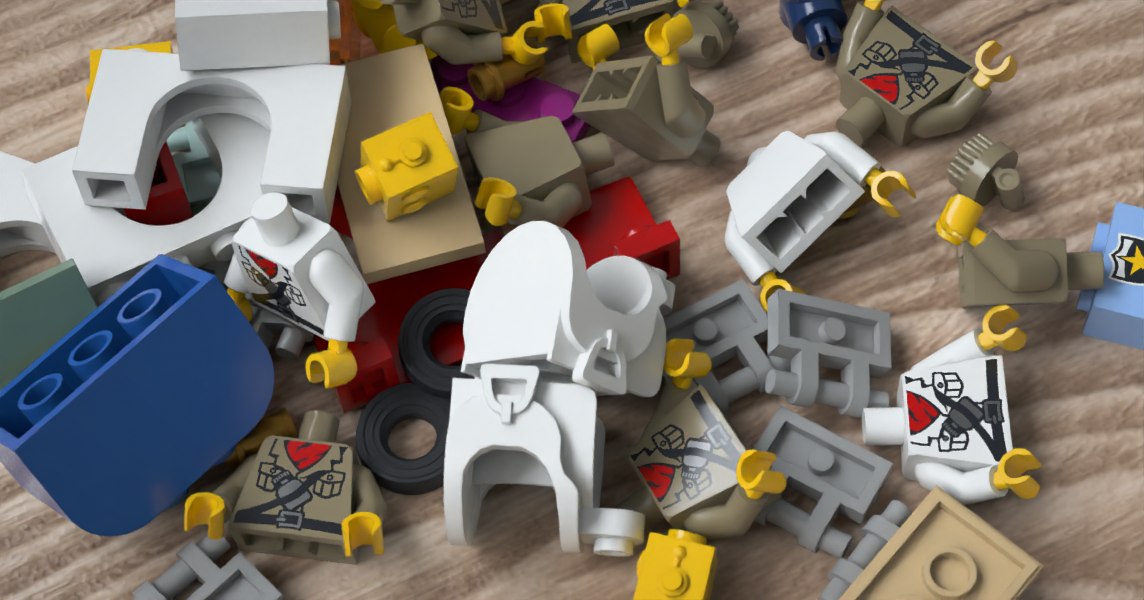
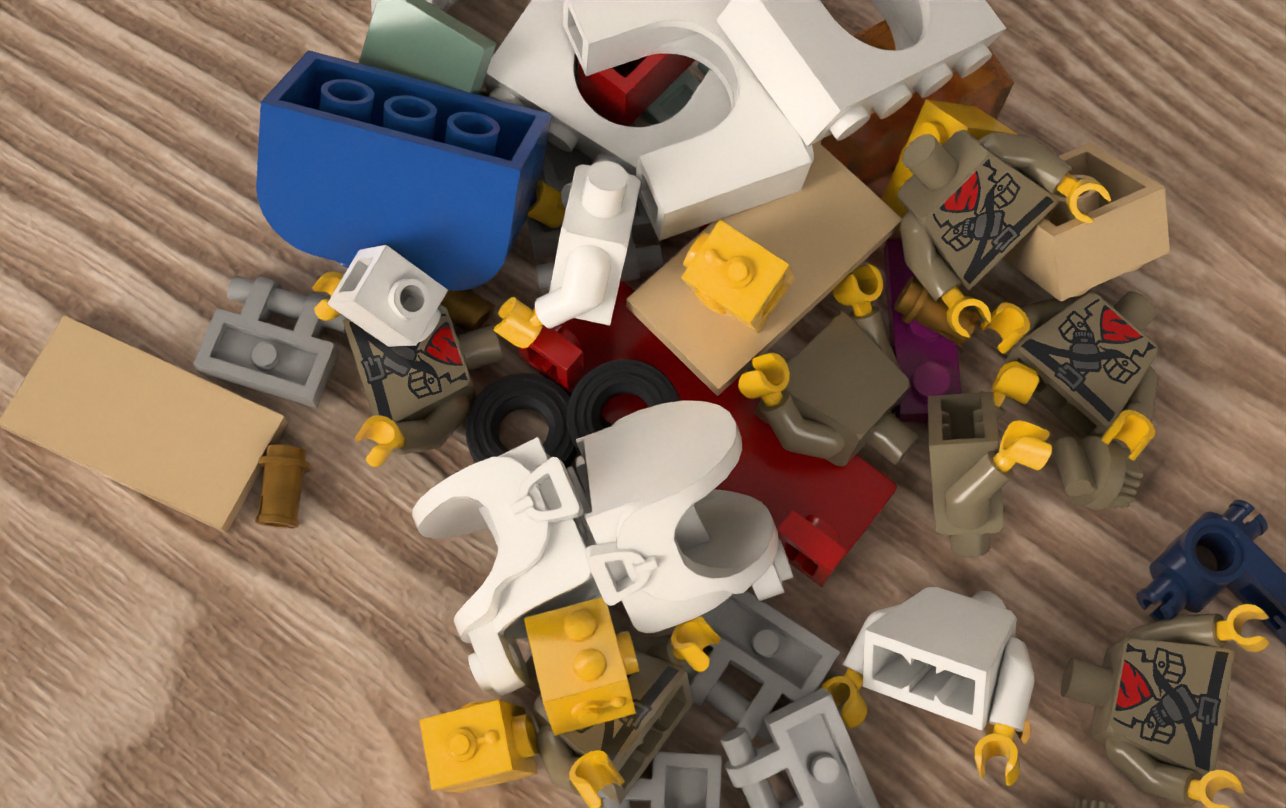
camera: 55 degrees right, 10 degrees up
(241, 461) = (389, 297): none -> white brick
(656, 454) = (581, 665): none -> yellow head

